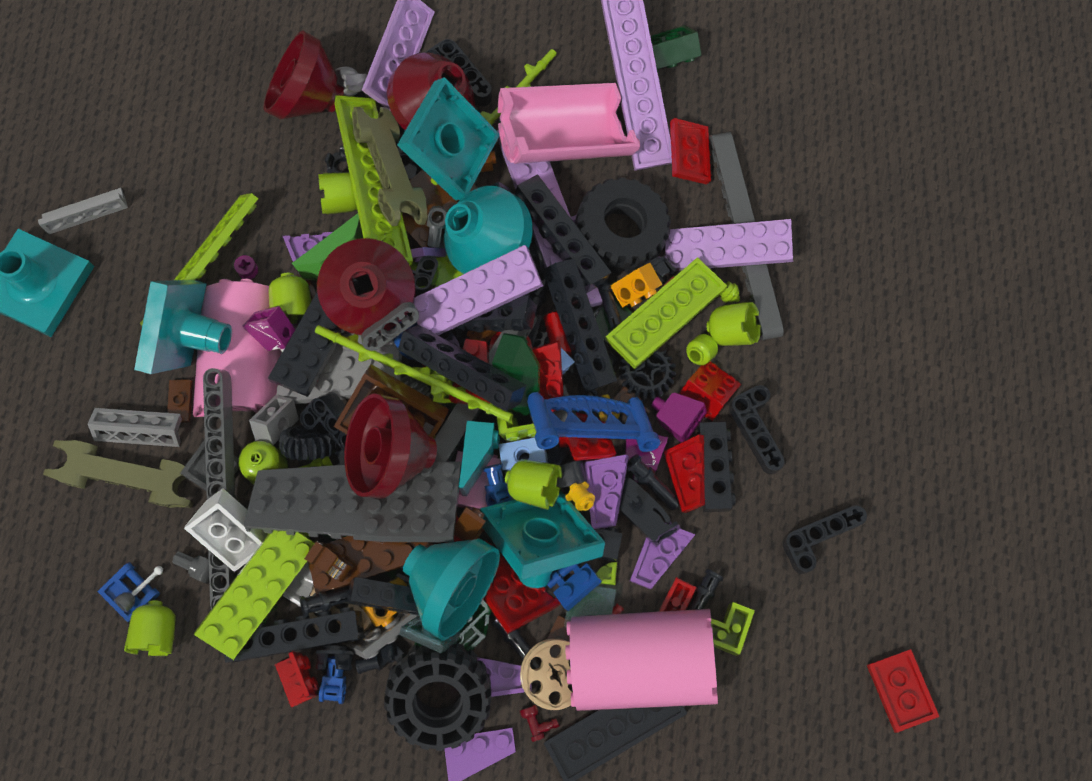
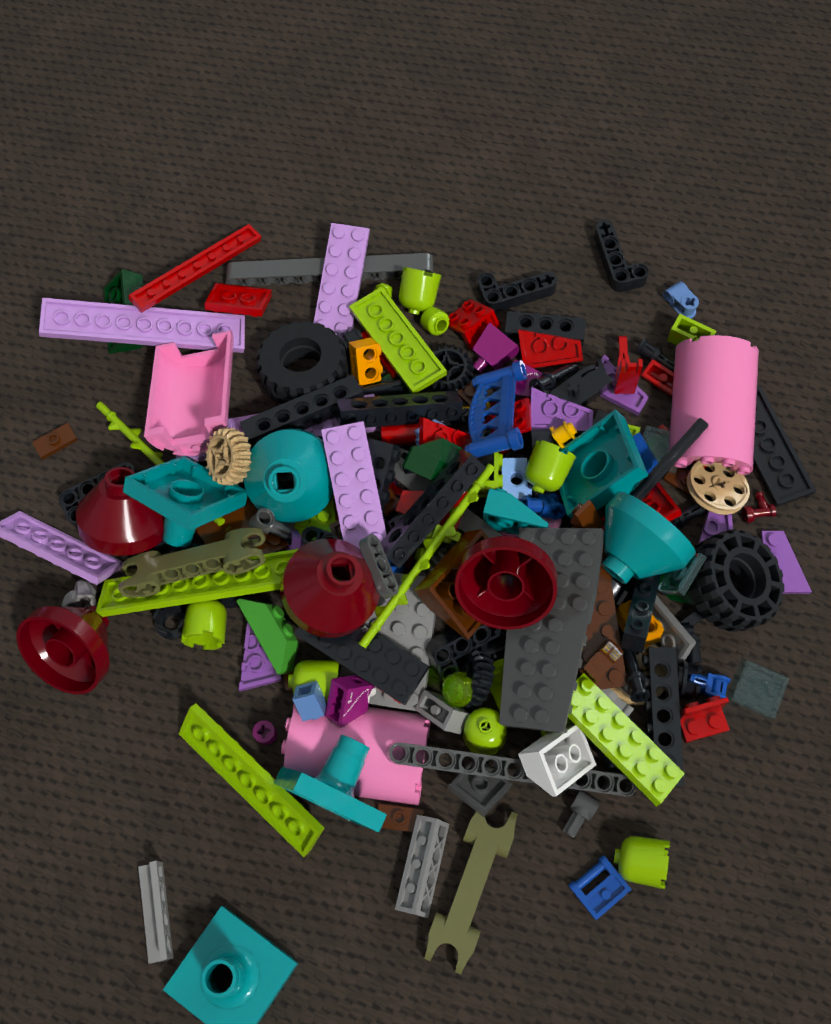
camera: 75 degrees left, 5 degrees down
(127, 600) = (611, 885): hinge -> none
(262, 292) = (309, 701): none -> medium blue brick
(289, 426) = (457, 689): none -> clear neon green hair
(337, 737) = (760, 689): none -> clear light blue tile
(490, 168) = (228, 456): none -> tan gear
(509, 23) = (55, 441): none -> reddish brown plate
(555, 606) = (670, 459): none -> black axle
(667, 558) = (626, 373): none -> red hinge
(714, 101) = (194, 268): none -> red plate
(784, 612) = (681, 299): none -> medium blue piece
(902, 691) = (751, 225): red plate -> none

